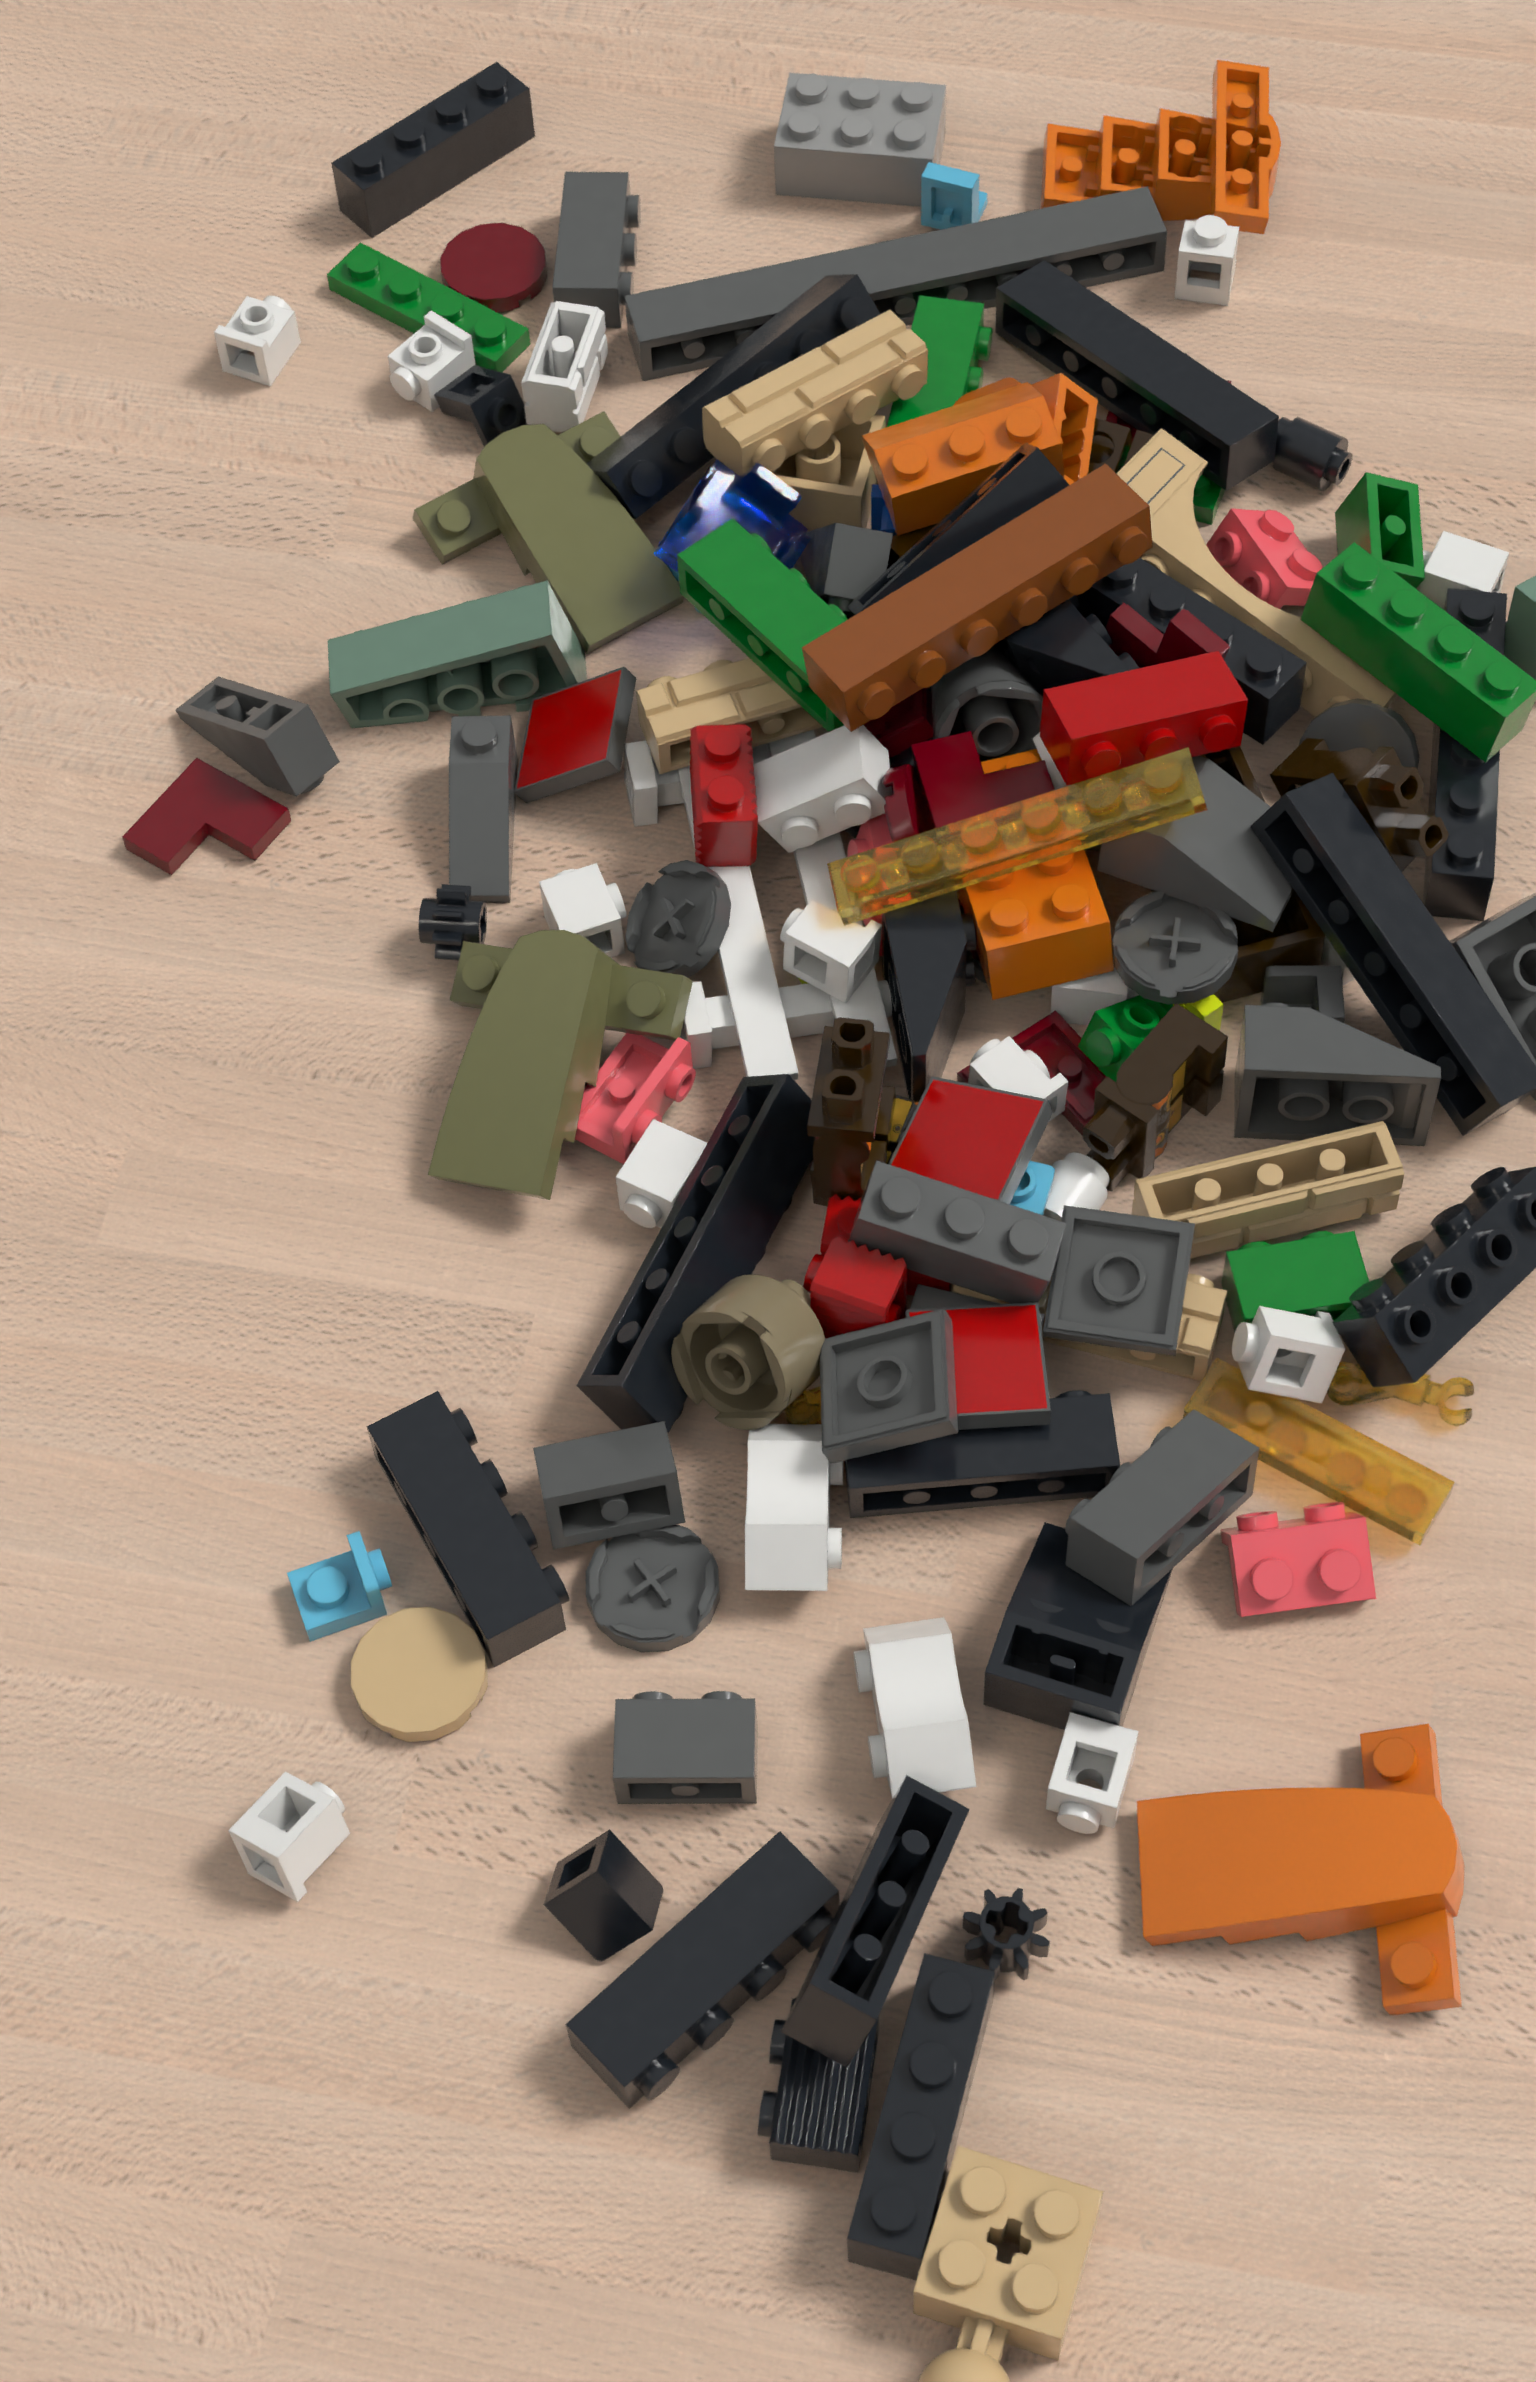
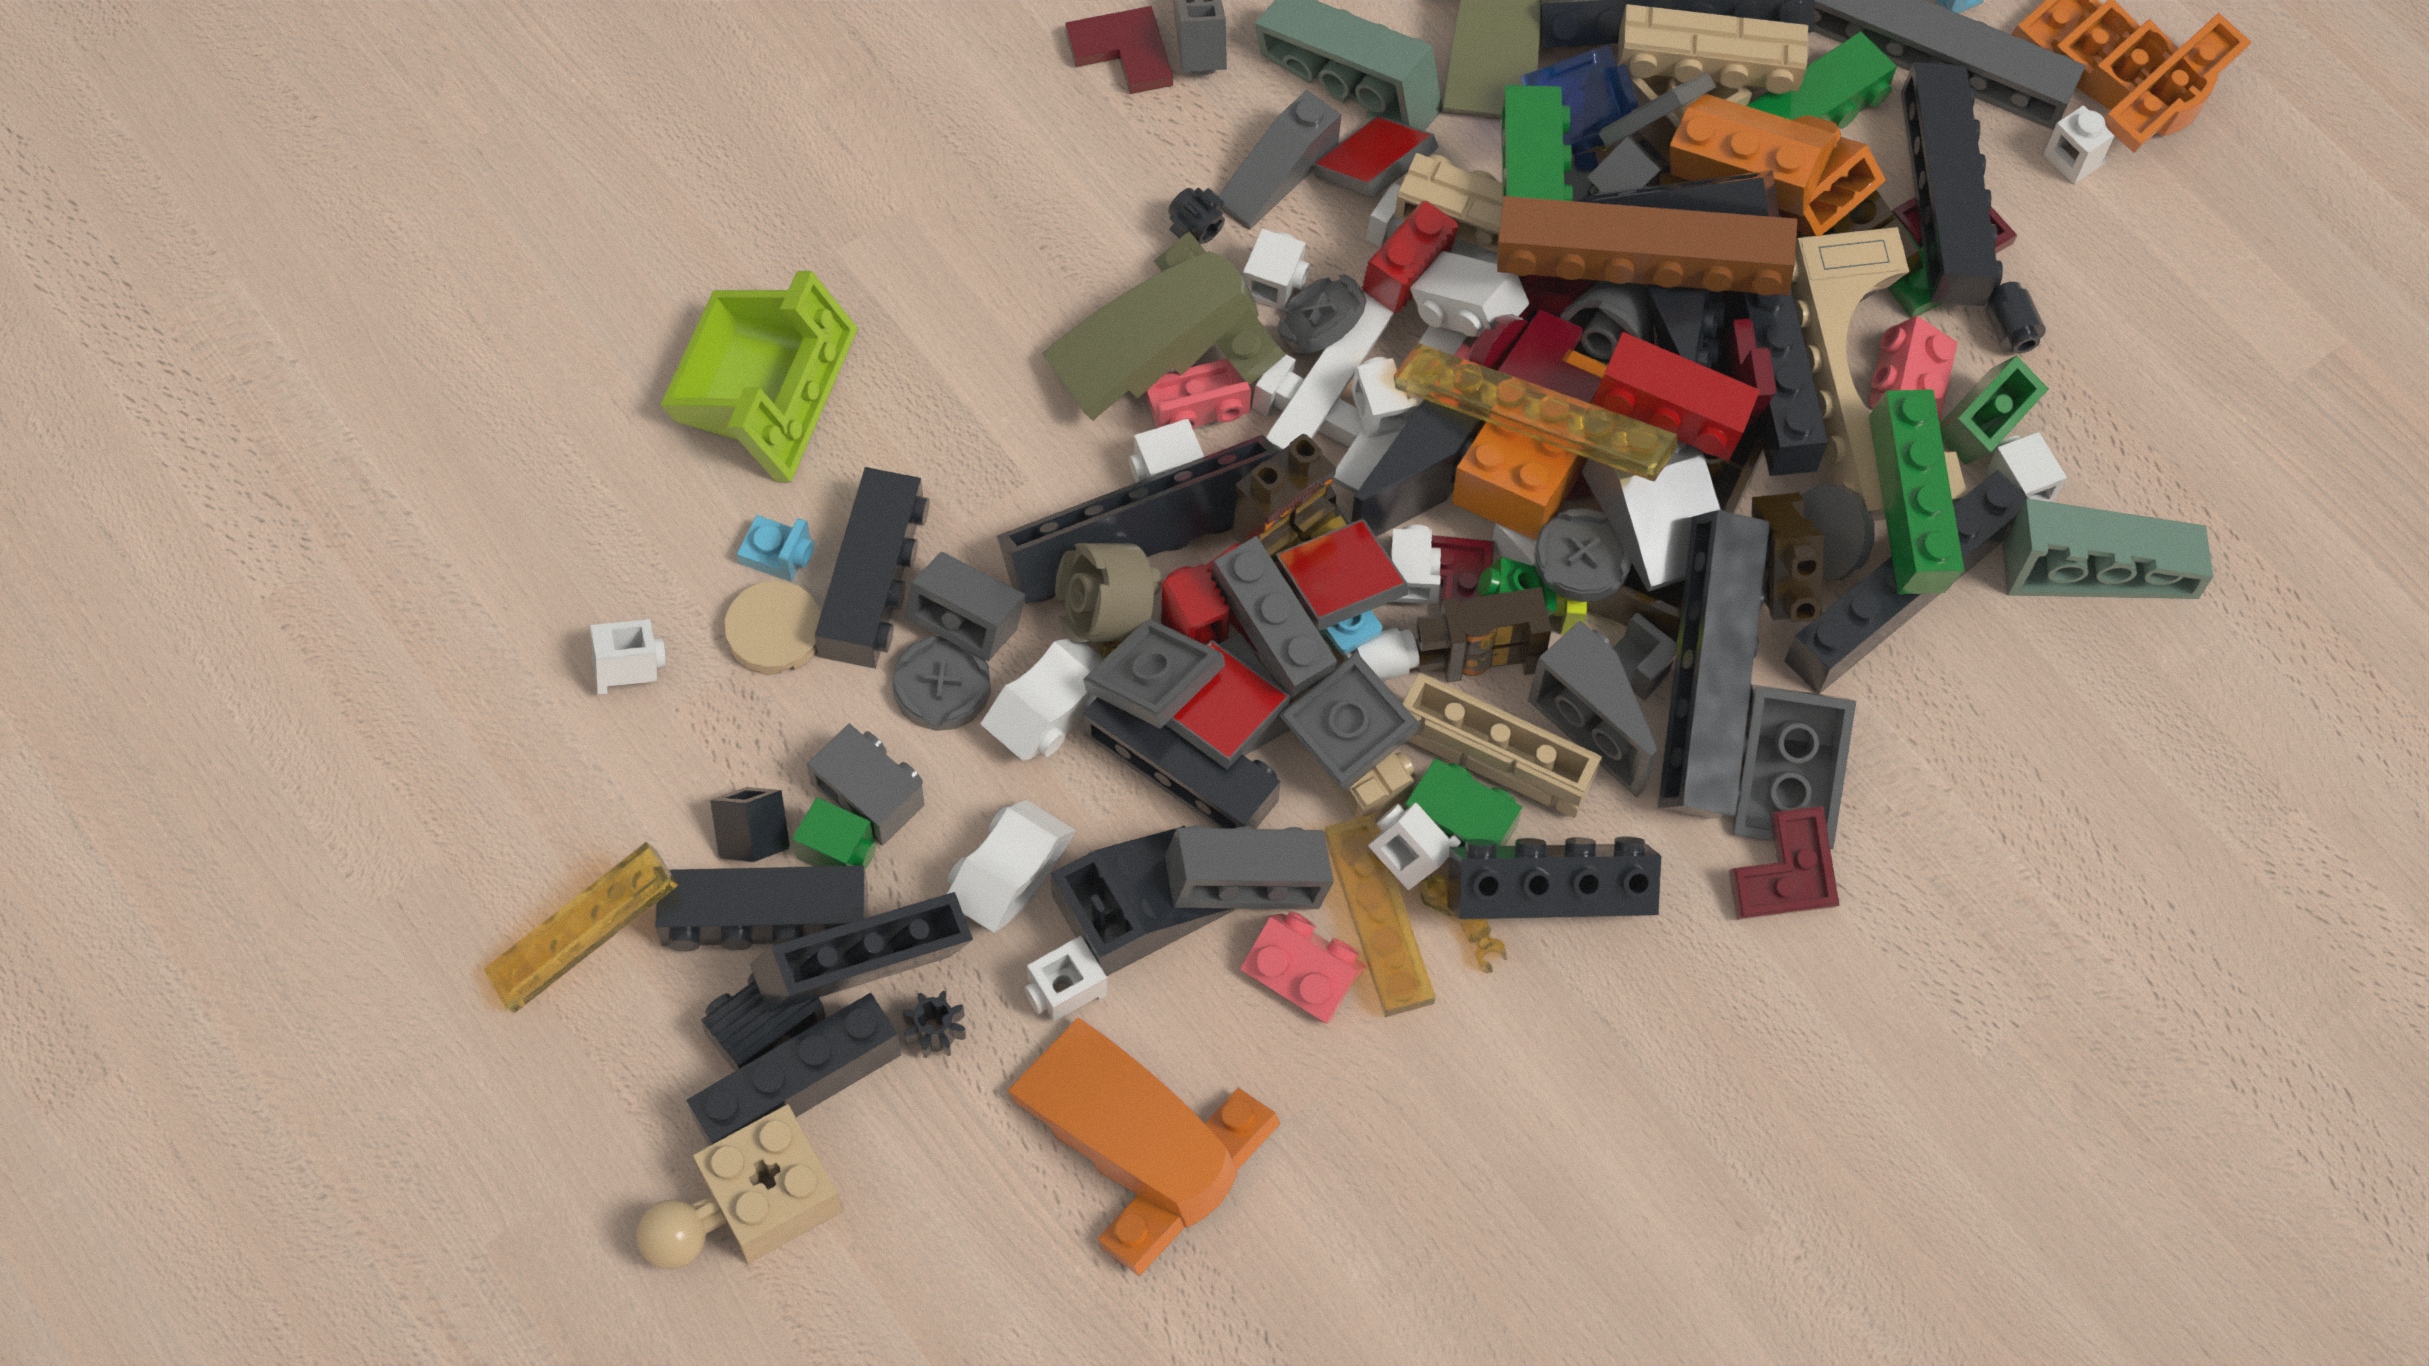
camera: 35 degrees right, 5 degrees up
(145, 1418) = (763, 369): none -> lime windscreen
(540, 2161) = (580, 927): none -> clear yellow plate
(711, 1834) = (833, 837): none -> green brick
(831, 481) = (1657, 109): none -> dark grey tile

